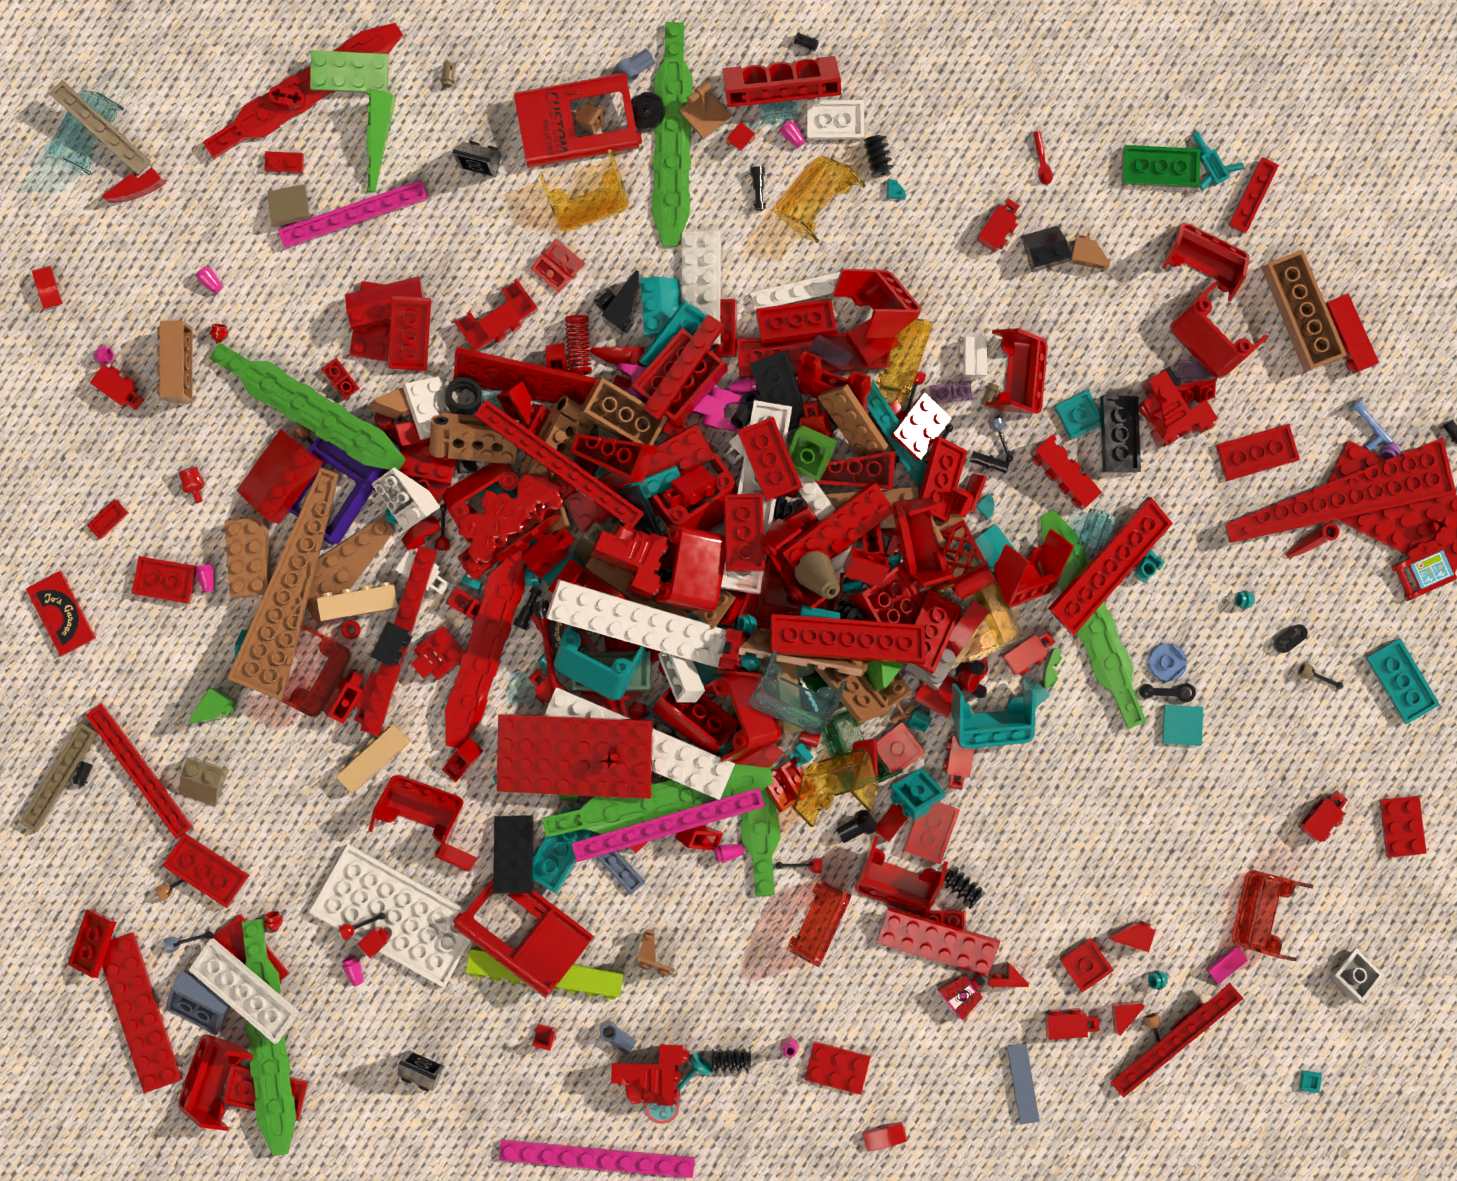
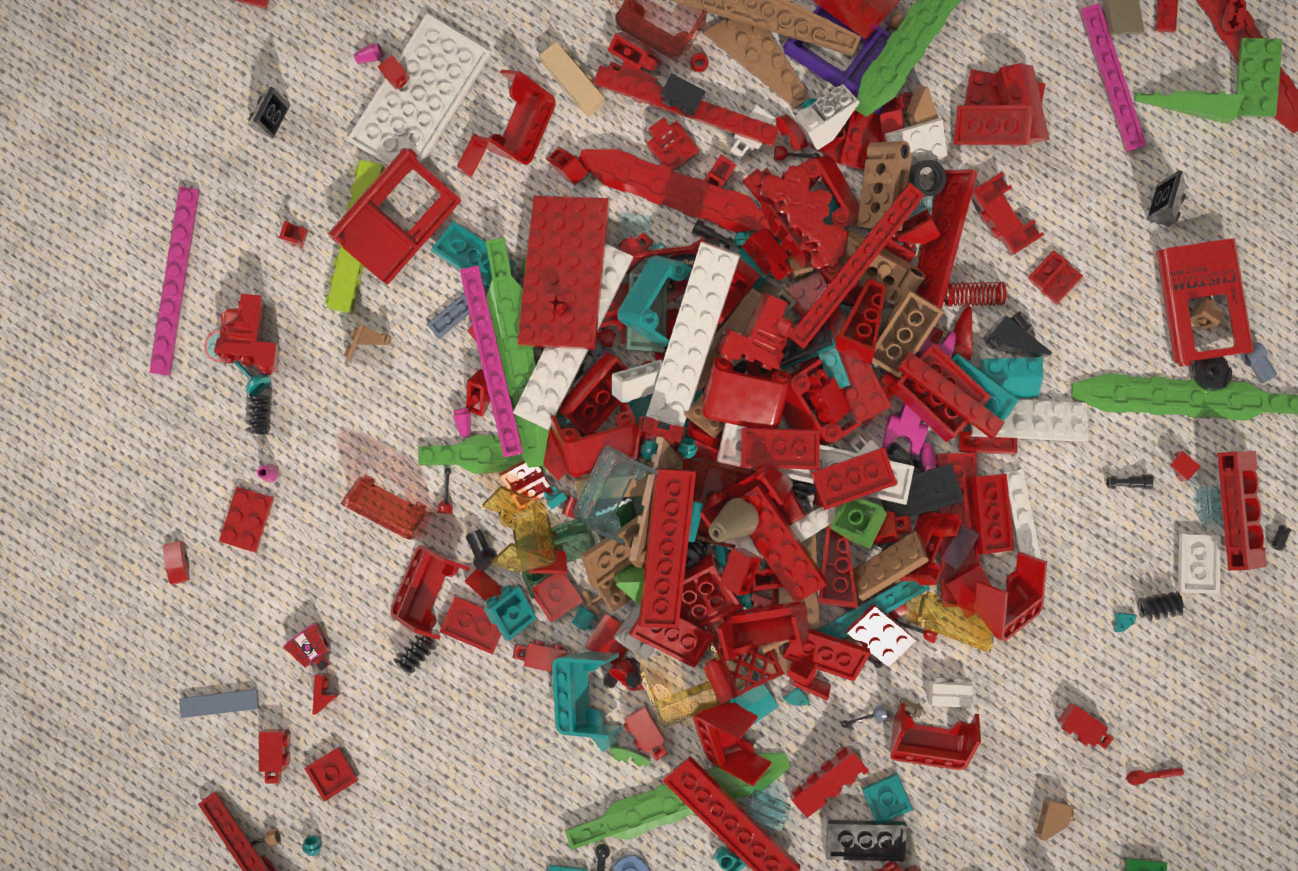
camera: 100 degrees right, 0 degrees up
(340, 378) = (948, 60): red slope -> none
(348, 930) = (406, 47): hinge -> none
(357, 603) = (725, 67): tan brick -> none
(448, 75) = (1252, 175): dark tan pin -> none
(466, 466) = (856, 179): black tile -> none
(470, 582) = (739, 181): teal tile -> none
(513, 854) = (471, 210): black plate -> none
(556, 356) = (963, 271): red slope -> none
(592, 206) = (1115, 310): clear yellow windscreen -> none
(618, 1038) = (287, 305): sand blue piece -> none
(704, 111) = (1211, 430): medium nougat plate -> none
(792, 134) = (1185, 518): dark pink cone -> none
(812, 192) = (1124, 537): clear yellow windscreen -> none
(938, 941) = (363, 626): plate -> none
(950, 917) = (384, 634): red slope -> none
(951, 392) = (914, 668): clear purple slope -> none
(966, 627) = (675, 671): red slope -> none
(989, 462) = (841, 703): black pin -> none
(1046, 248) = (1060, 774): black slope -> none
(1124, 1014) = (279, 810): red slope -> none
(1135, 935) = (357, 825): red slope -> none

